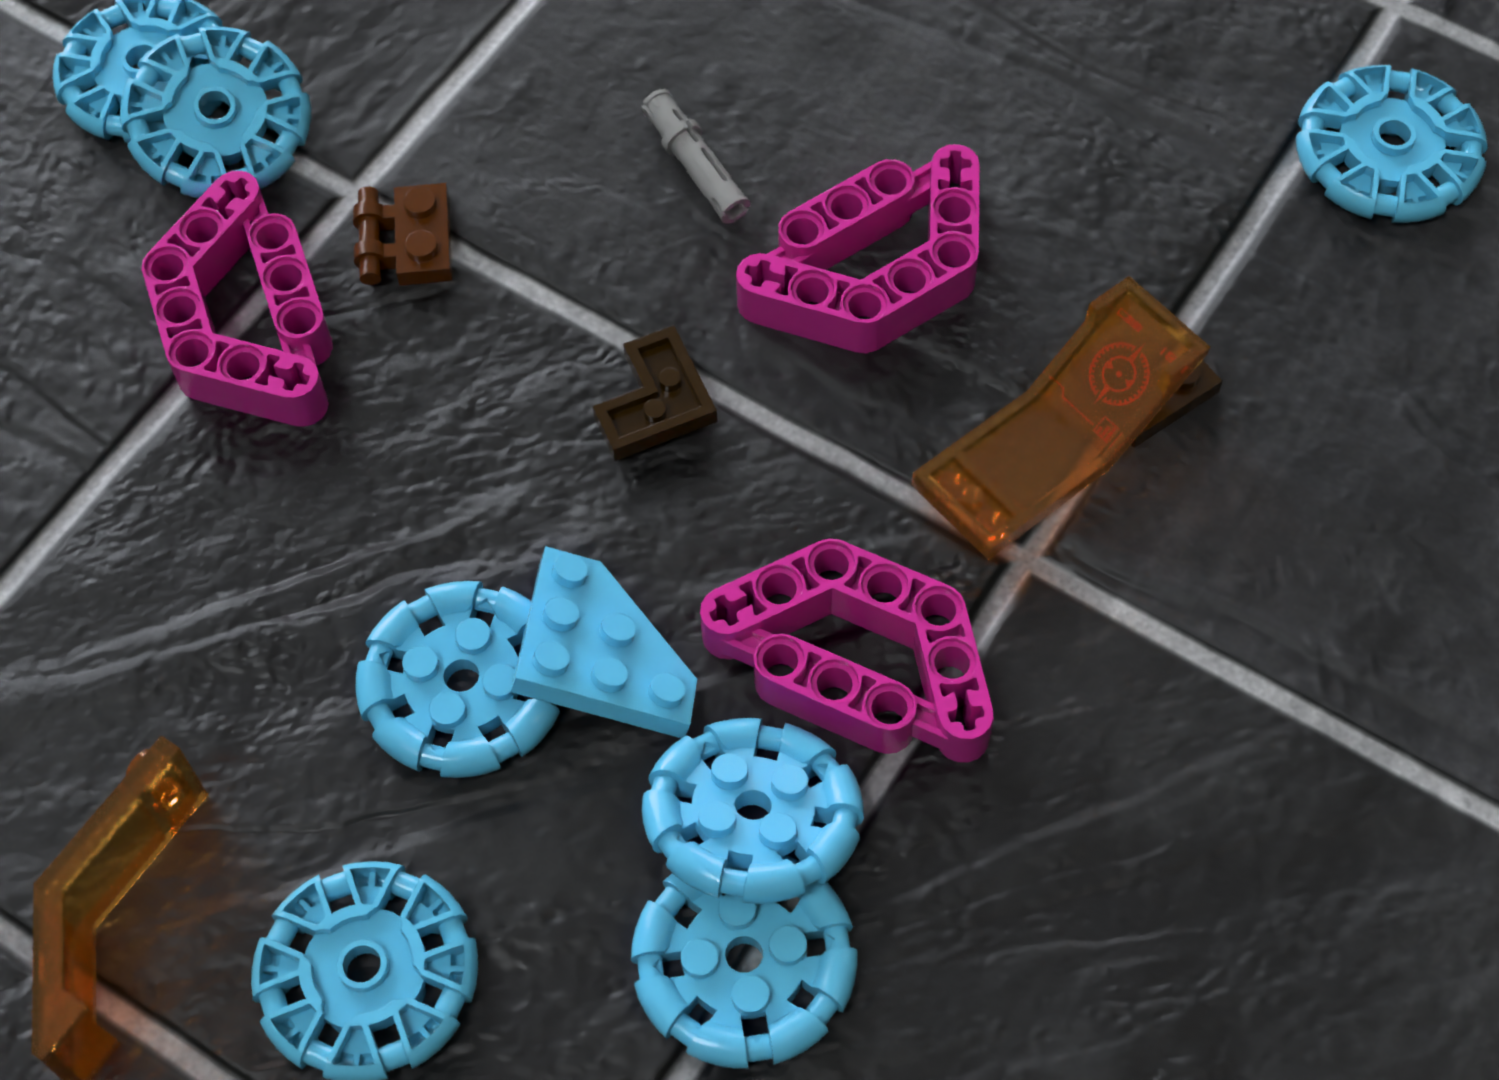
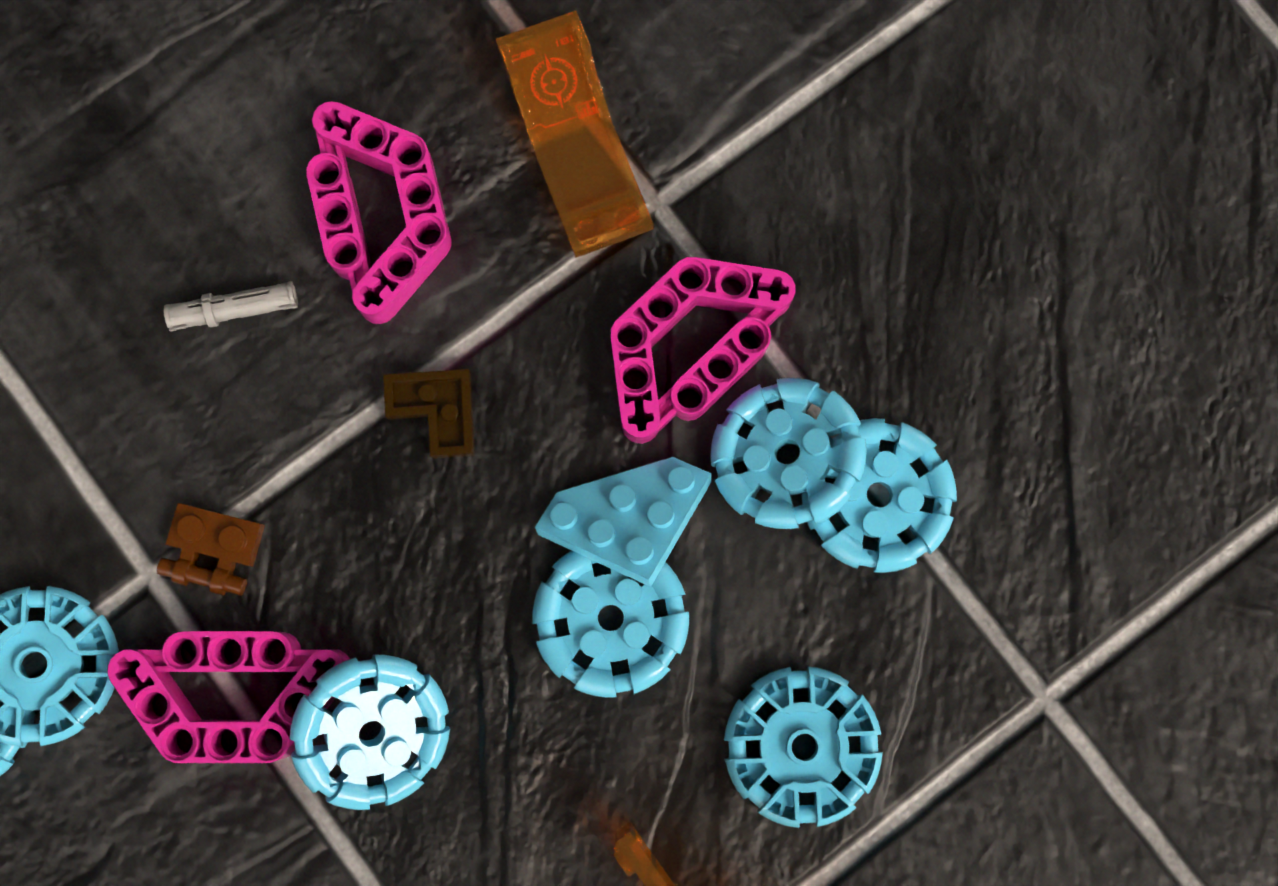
camera: 75 degrees left, 20 degrees up
(203, 447) = (376, 756): none -> medium azure plate

